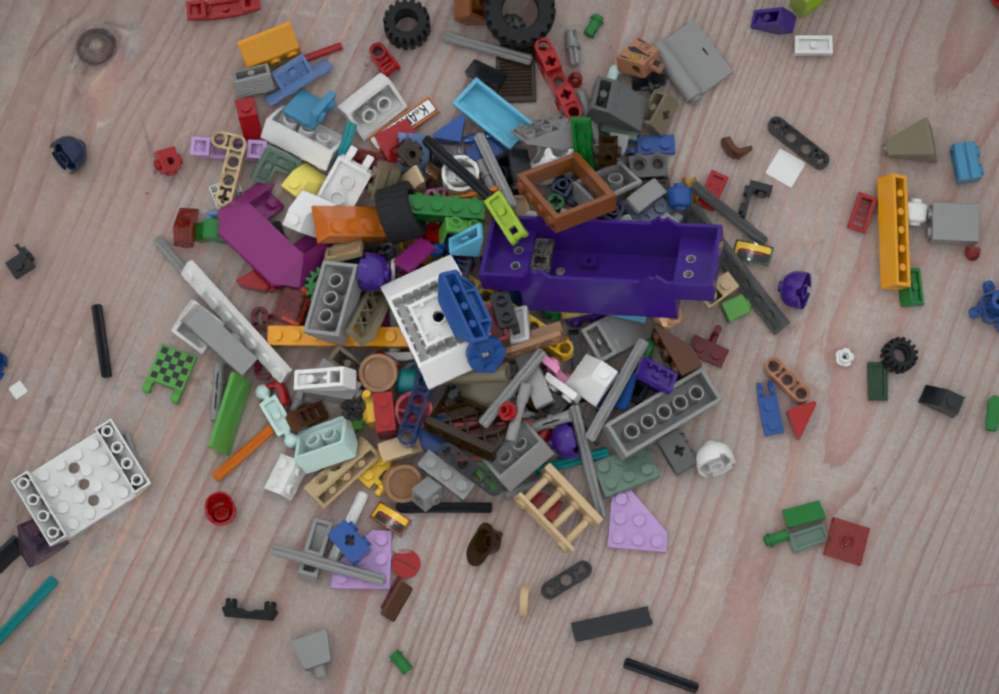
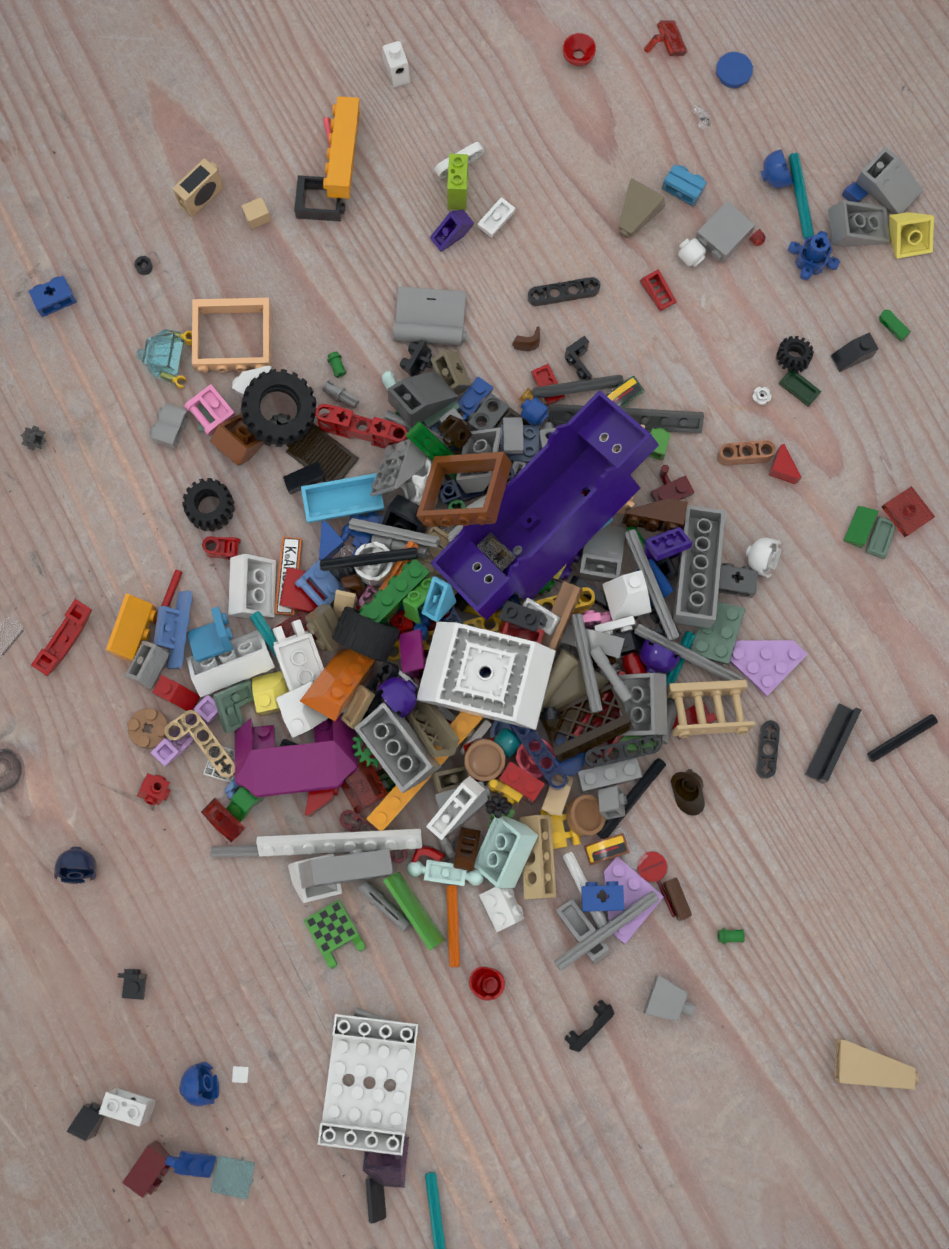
camera: 55 degrees left, 0 degrees up
(101, 341) = (259, 969): black axle -> none
(204, 111) = (137, 724): none -> medium nougat plate
(402, 151) = (320, 588): dark brown brick -> none
(463, 307) = (499, 645): blue wedge -> none
(487, 47) = (283, 458): light grey axle -> none
(489, 363) = (543, 649): blue plate -> none
(506, 217) = (444, 553): lime plate -> none
(507, 411) = (609, 680): red plate -> none
(523, 600) = (761, 796): tan piece -> none
(563, 417) = (635, 654): light grey pin -> none
(574, 75) = (371, 410): clear red hinge -> none
(639, 59) = (397, 350): nougat torso -> none
(769, 411) = (757, 484): blue hinge -> none
(776, 538) = (861, 566): green pin -> none
(785, 167) = (574, 317): white sticker -> none
(794, 289) = (679, 387): dark purple cylinder -> none
(893, 232) = (696, 279): light orange brick -> none
(913, 295) = (745, 304): green slope -> none

